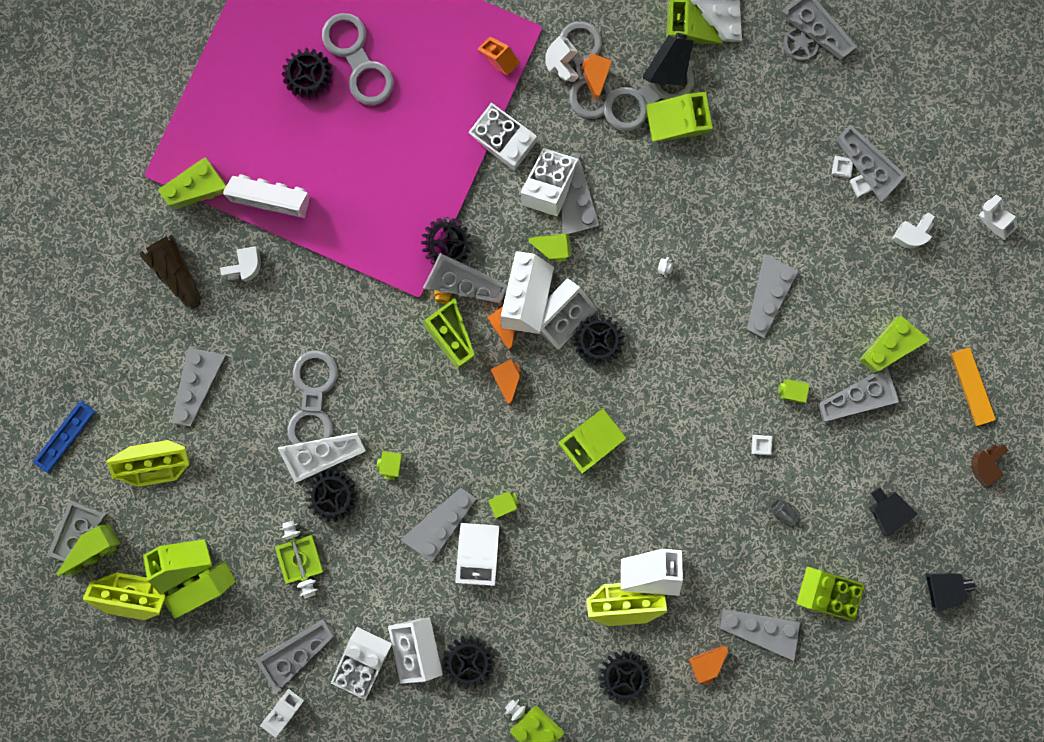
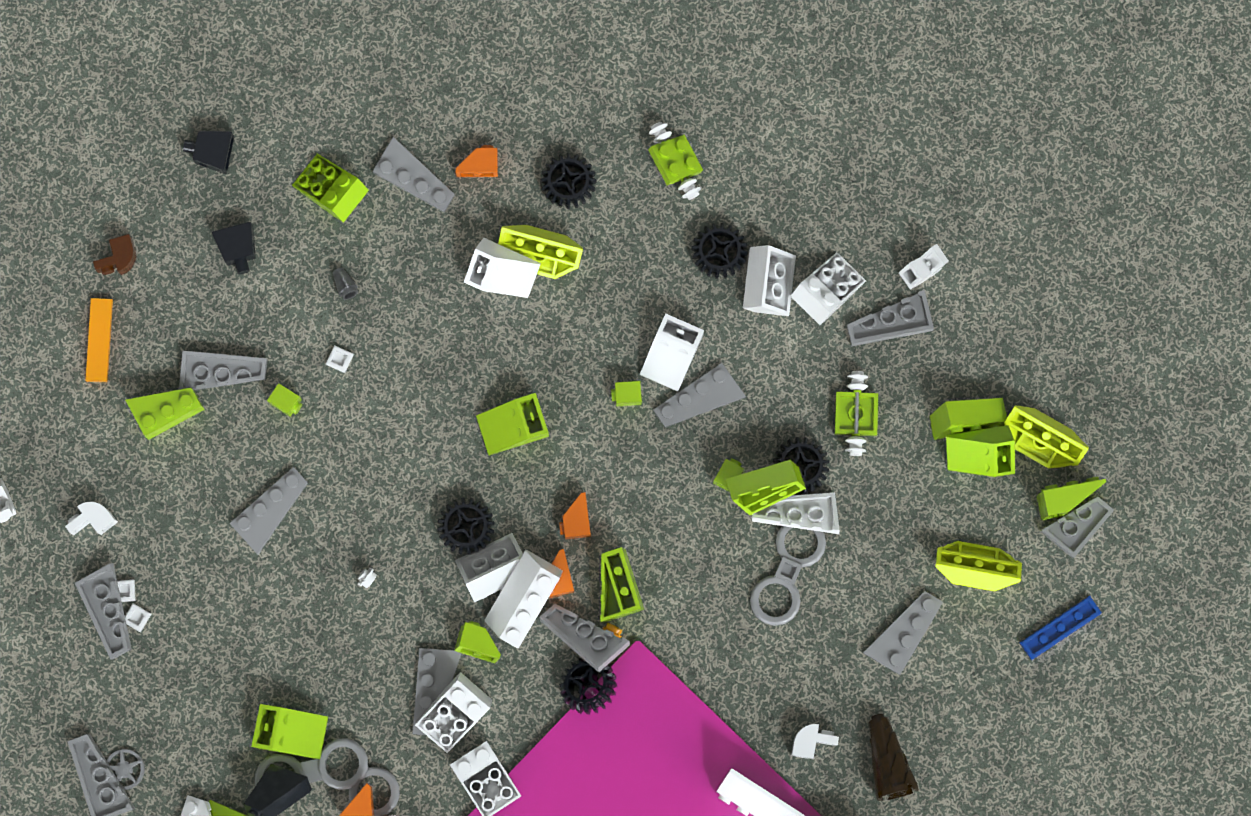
camera: 160 degrees left, 5 degrees down
(353, 463) = (765, 486): none -> lime wedge

